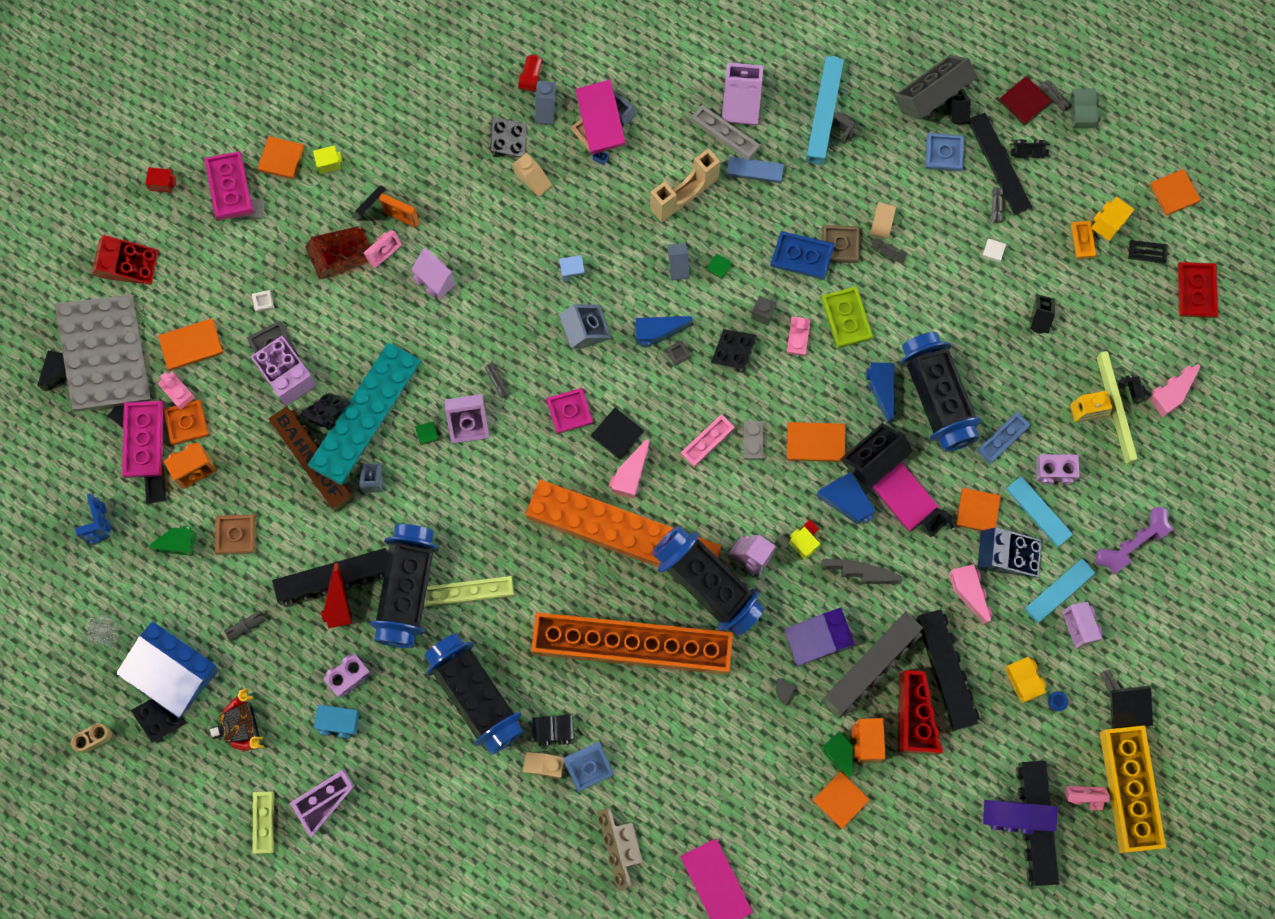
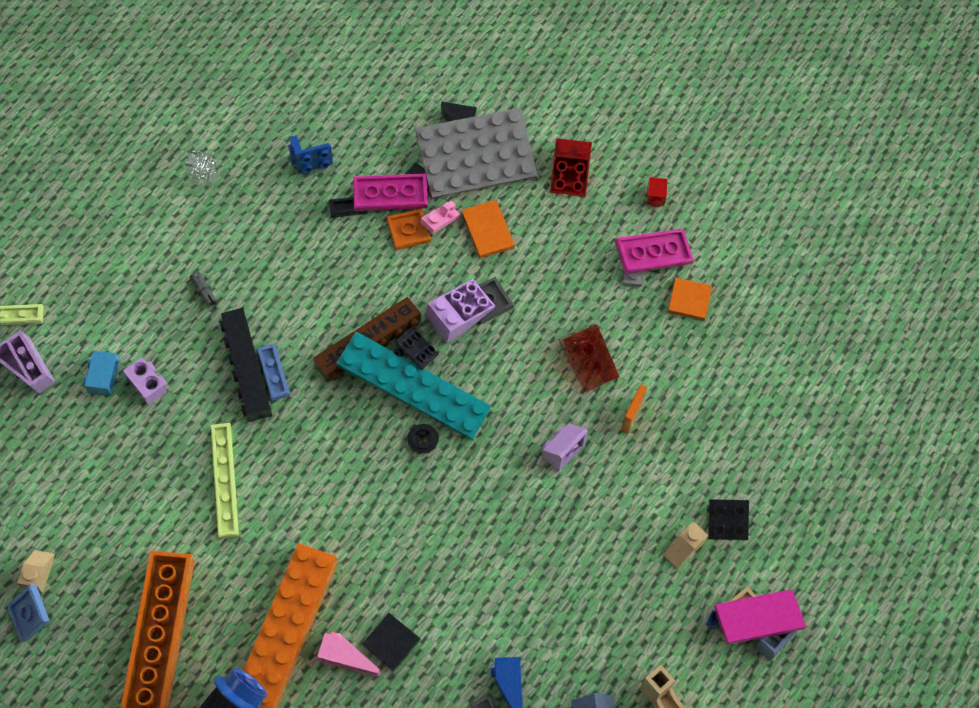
camera: 85 degrees right, 10 degrees down
(91, 737) = (106, 168): tan beam -> none
(156, 720) = (121, 221): black hinge -> none
(166, 670) = (164, 224): slope -> none
(176, 541) = (288, 226): green slope -> none
(189, 465) = (360, 230): orange brick -> none
(235, 534) = (295, 277): medium nougat tile -> none
(239, 724) = (105, 288): torso -> none
(262, 301) = (534, 290): white tile -> none
(327, 159) = (689, 341): neon yellow brick -> none
(336, 604) = (215, 366): red slope -> none
(341, 550) = (273, 372): none -> medium blue tile
(368, 203) = (639, 378): black tile -> none
(371, 478) = (347, 395): sand blue slope -> none
(382, 248) = (593, 397): bright pink hinge -> none
(404, 586) = (226, 425): black brick -> none
(418, 397) = (422, 430): none -> black gear
(426, 433) = (394, 447): green tile -> none
(466, 418) = (408, 484): lavender slope -> none
(473, 694) = (111, 495): black brick -> none
(497, 380) = (451, 515): dark grey axle -> none
(530, 74) = (802, 541): red piece -> none
(545, 102) = (773, 557): sand blue slope -> none
(553, 729) = (72, 578): black brick -> none
(569, 411) = (417, 591): dark pink tile -> none
(571, 266) = (579, 588): light blue panel -> none
(584, 325) = (513, 605): sand blue slope -> none

